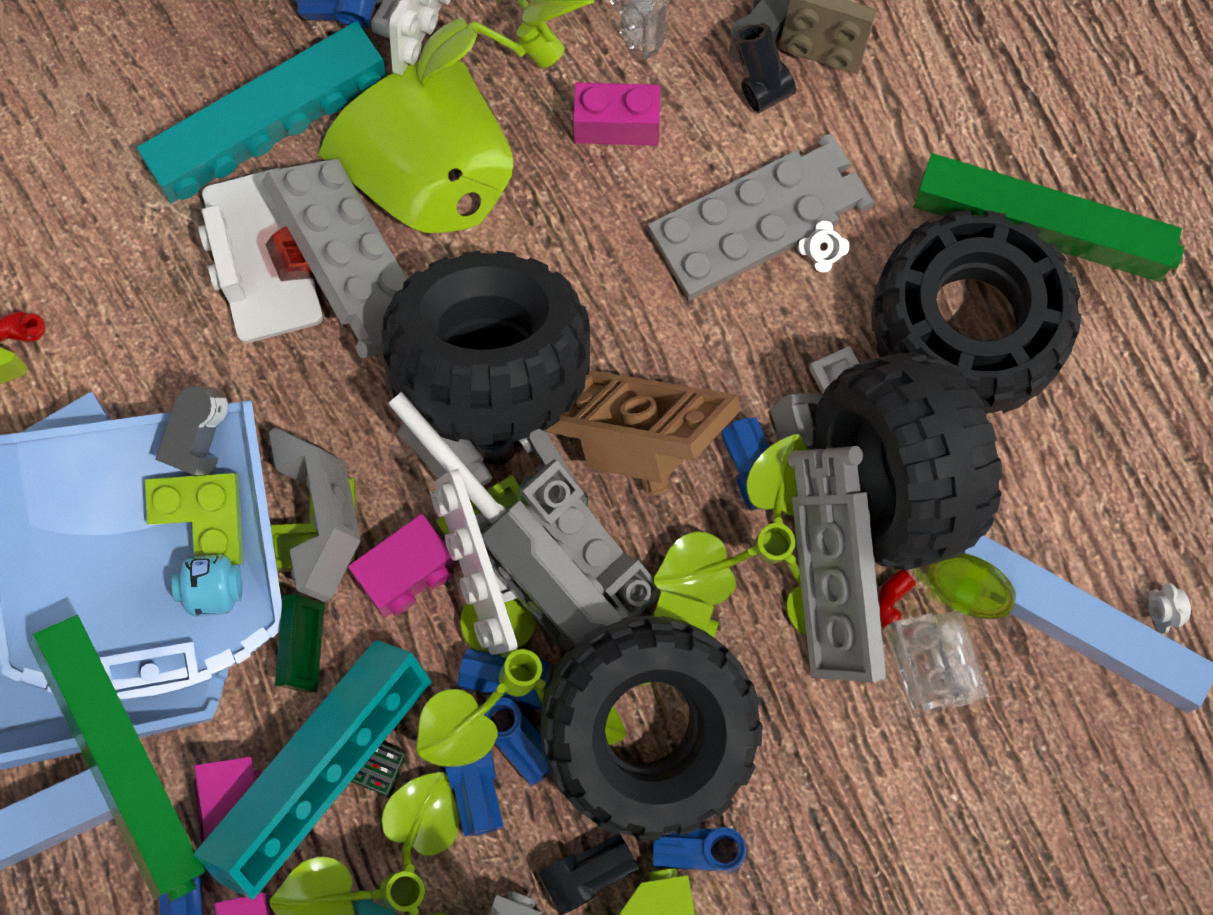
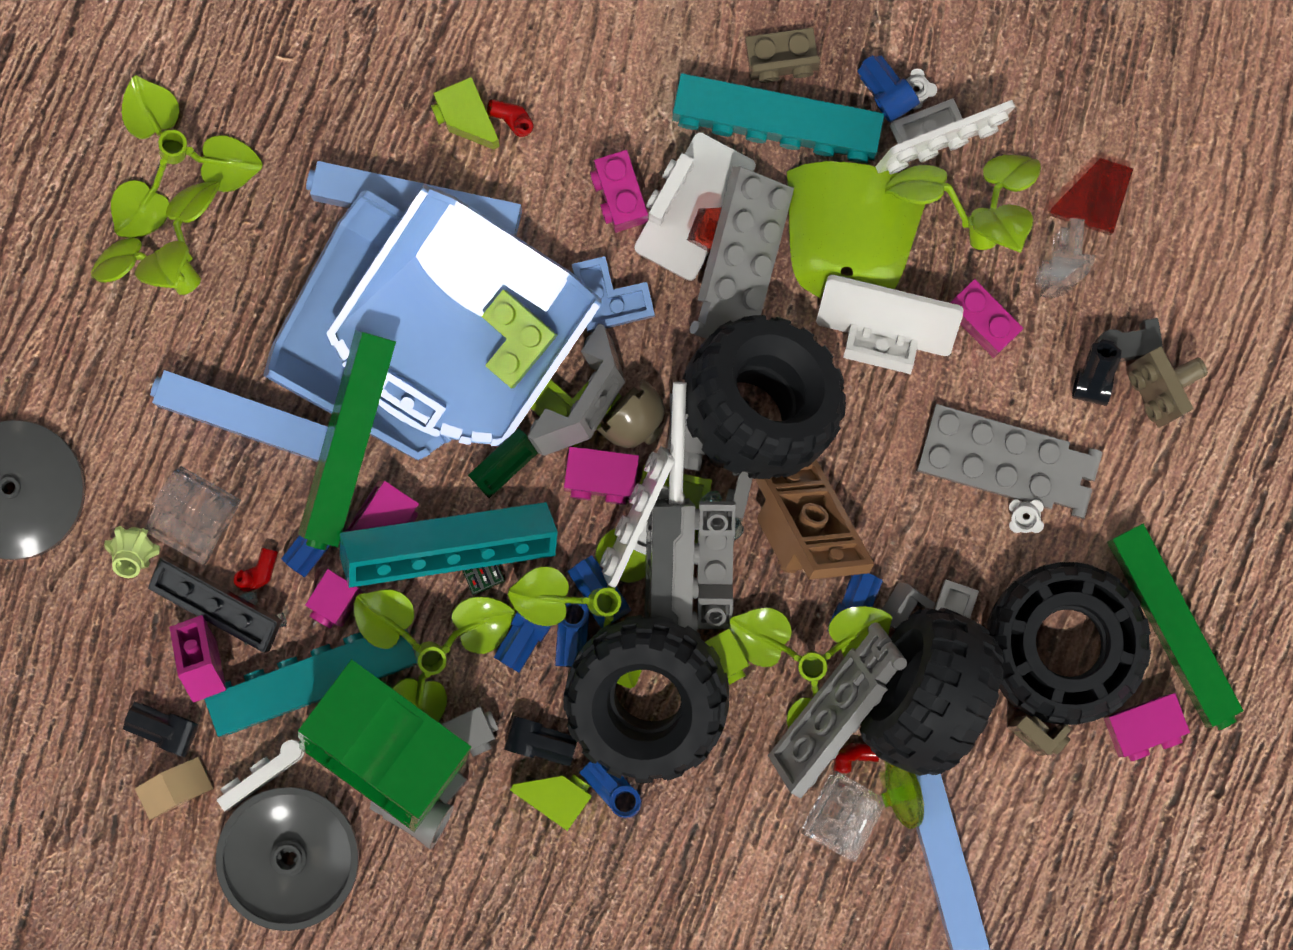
camera: 40 degrees right, 10 degrees up
(177, 299) = (620, 190): none -> dark pink brick
(192, 430) = (553, 287): dark grey leg -> none
(207, 585) = (482, 385): medium azure head -> none
(217, 60) = (782, 54): none -> dark tan bracket
(275, 398) = (618, 305): none -> light blue plate
(386, 484) = (635, 418): none -> dark tan cylinder
(534, 190) = (887, 323): none -> white bracket
(1035, 417) = (1034, 735): none -> dark tan bracket
(1114, 323) = (1147, 726): none -> dark pink brick
(1169, 607) = (1006, 913): white plate -> none

